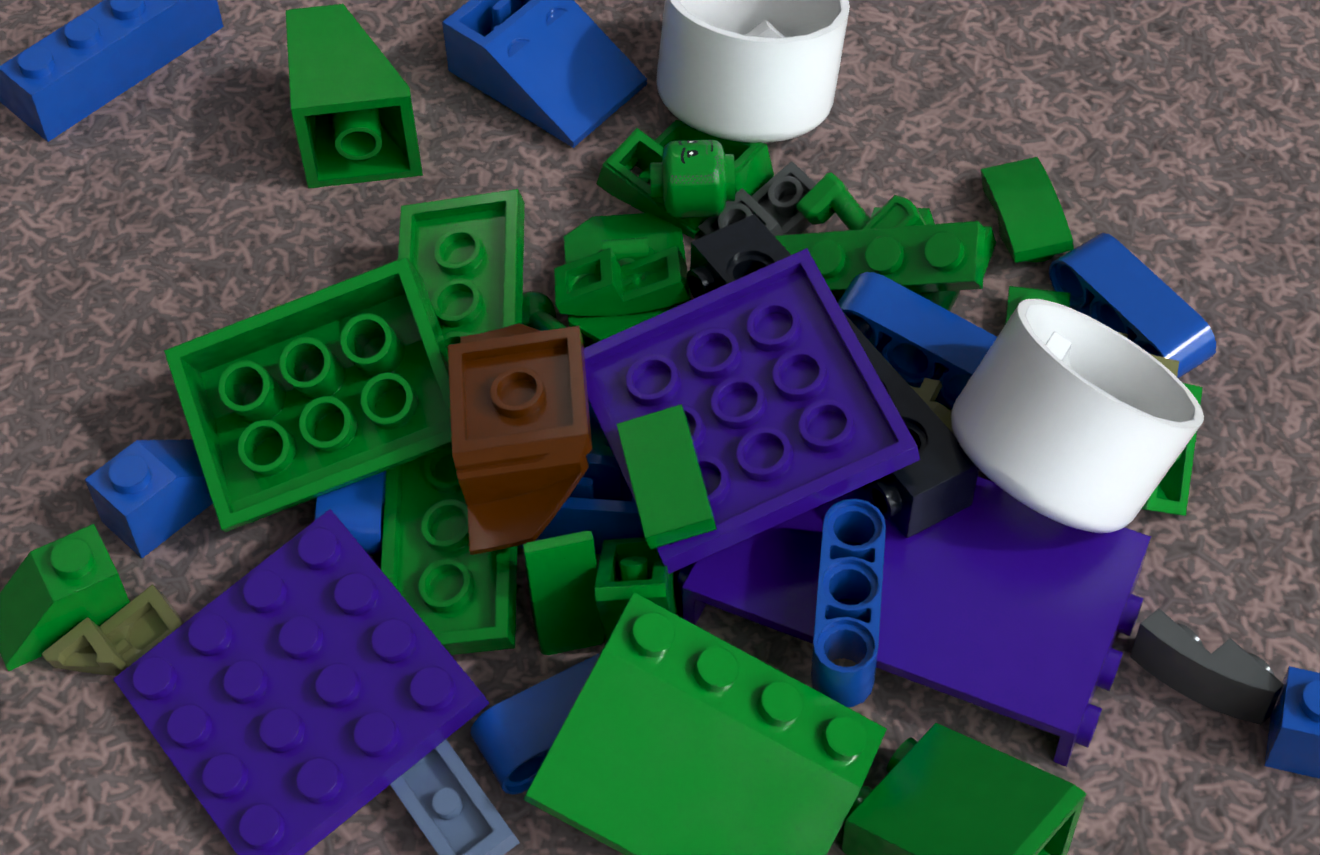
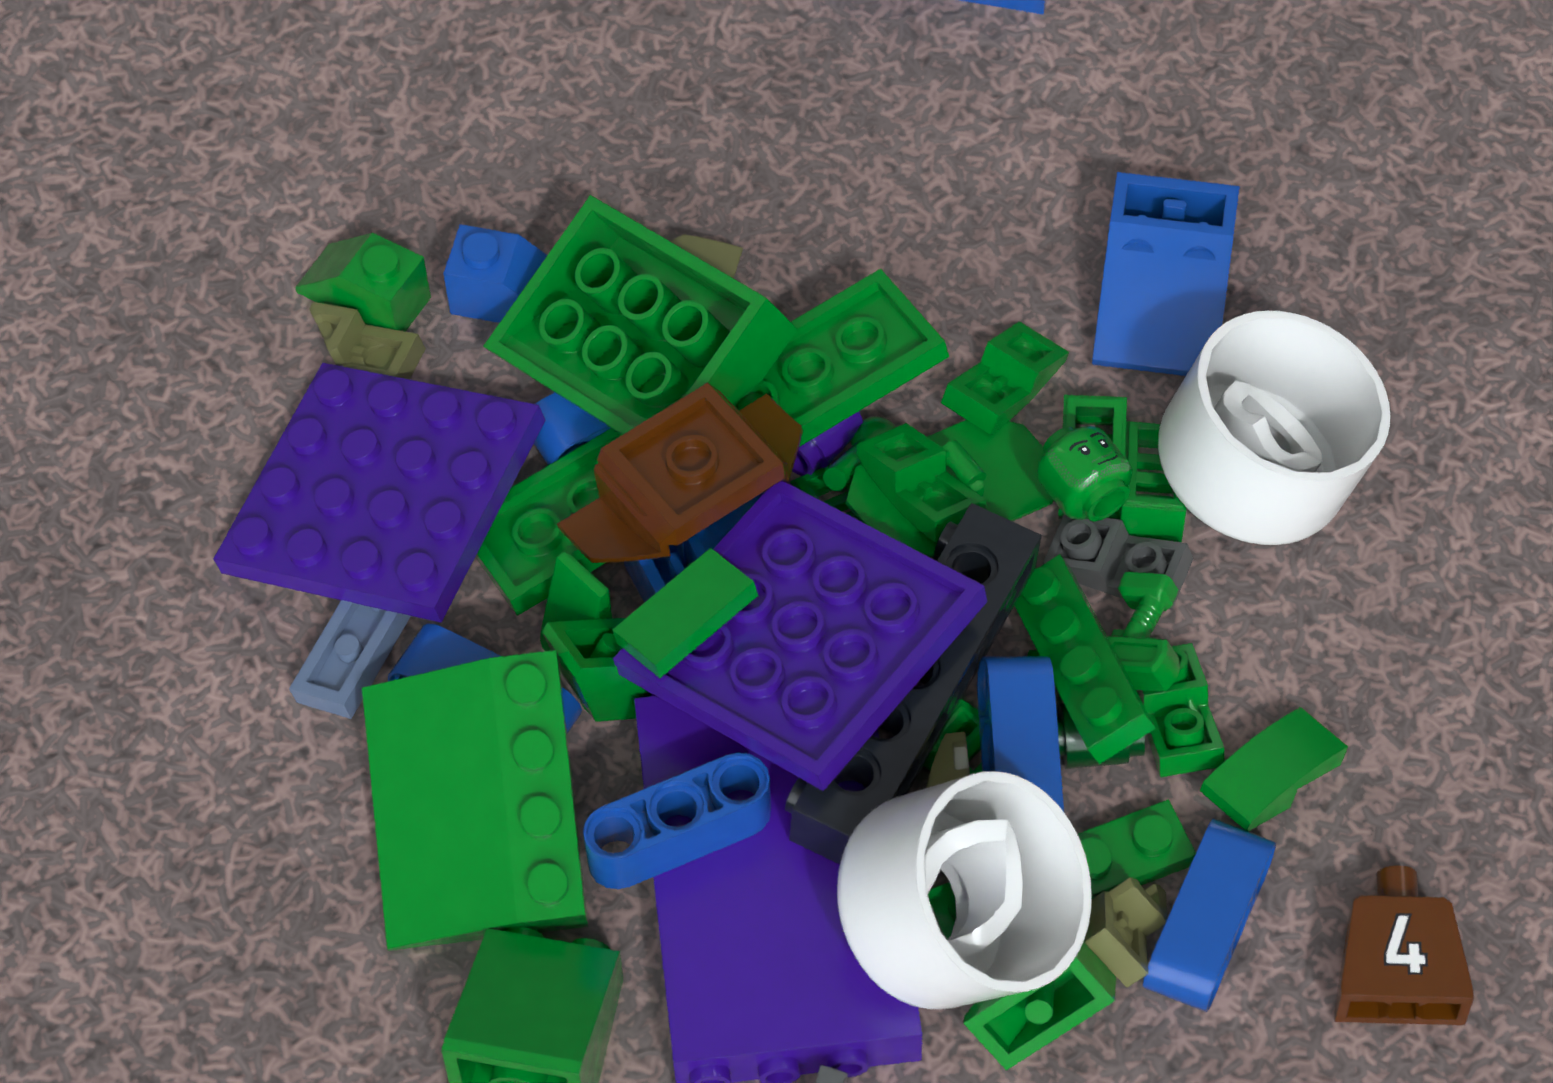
camera: 60 degrees right, 5 degrees up
(347, 102) = (981, 152): green slope -> none
(550, 209) = (1006, 377): none -> green slope
(1238, 213) = (1403, 957): none -> reddish brown torso

